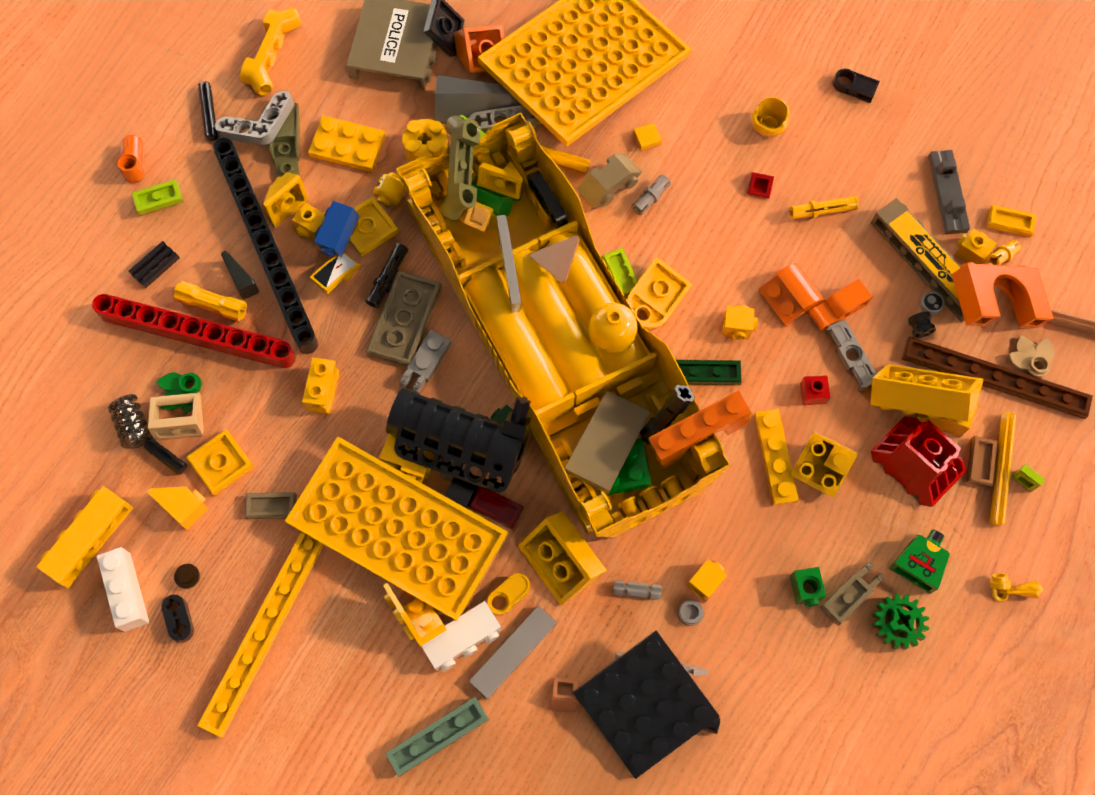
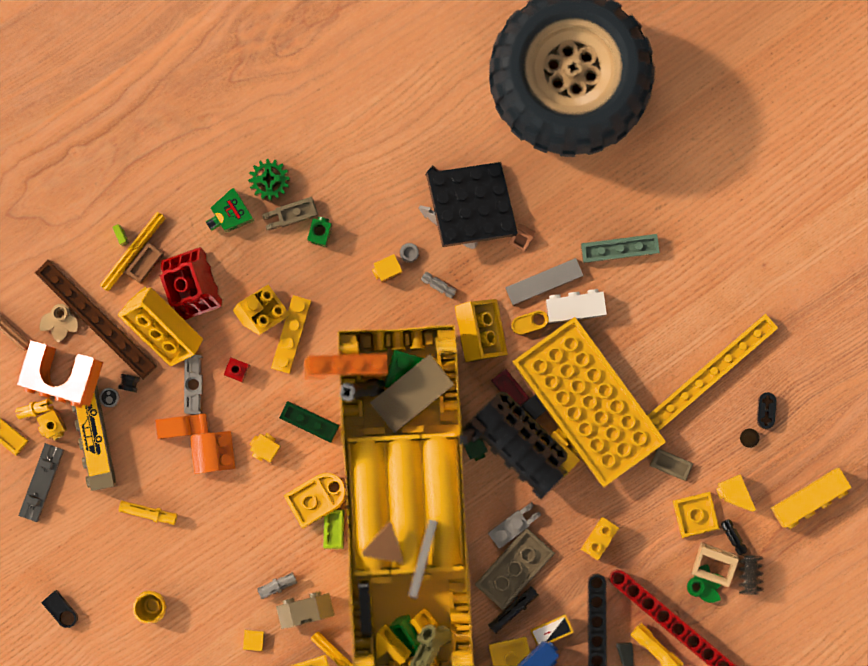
camera: 145 degrees left, 15 degrees up
(122, 589) = (797, 446): white brick -> none
(420, 618) = (602, 331): yellow bracket -> none
(613, 327) = (369, 473): yellow cylinder -> none
(760, 185) = (185, 557): red slope -> none
(1003, 584) = (183, 173): yellow piece -> none

